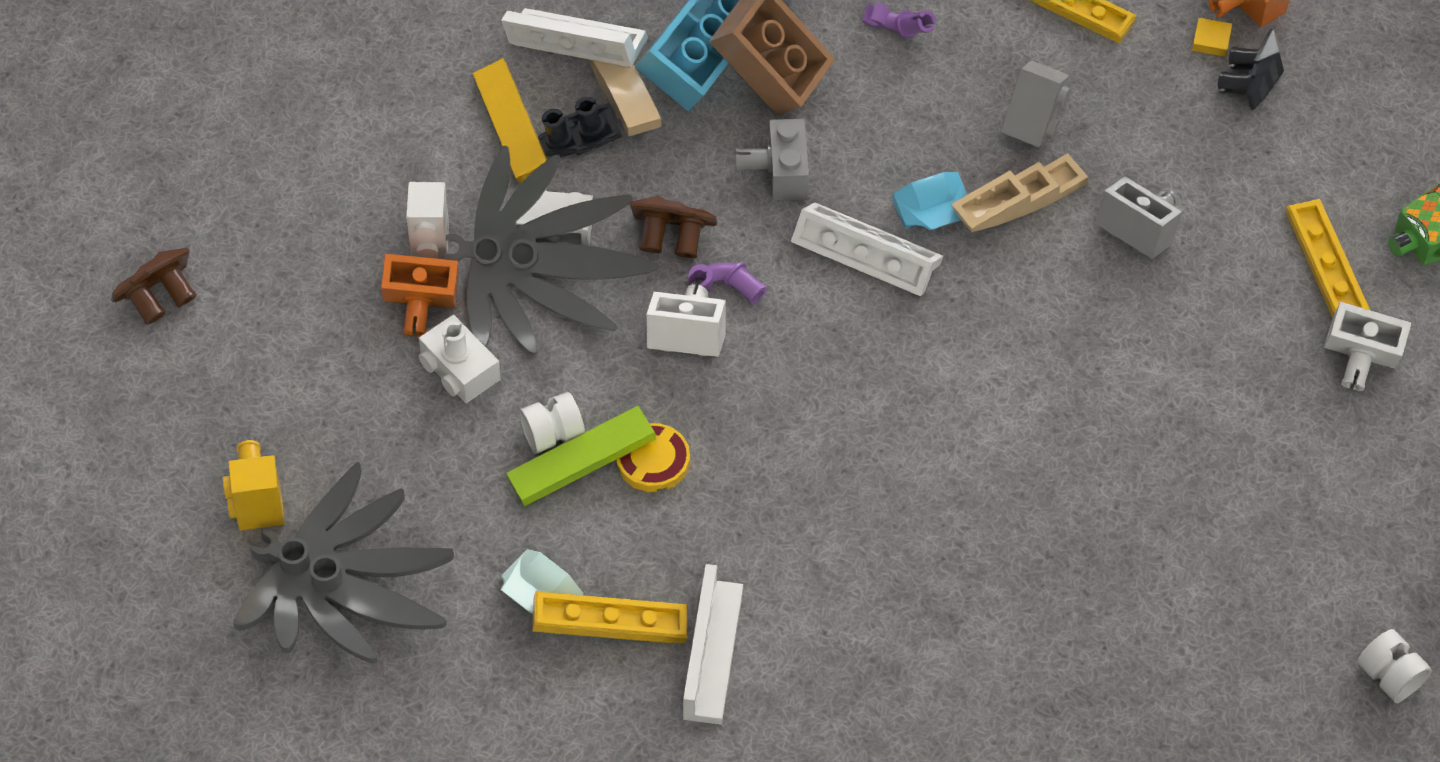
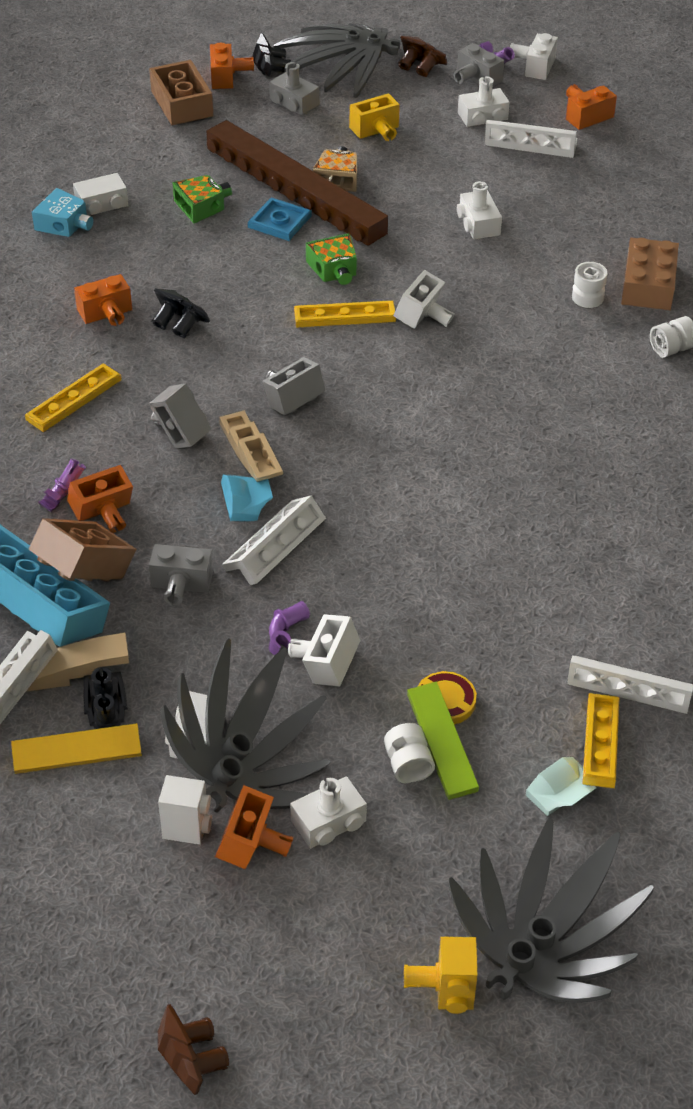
camera: 80 degrees left, 10 degrees down
(659, 212) = (211, 650): reddish brown connector -> none
(884, 58) = (101, 496): none -> orange brick
(1212, 37) = (135, 332): yellow tile -> none

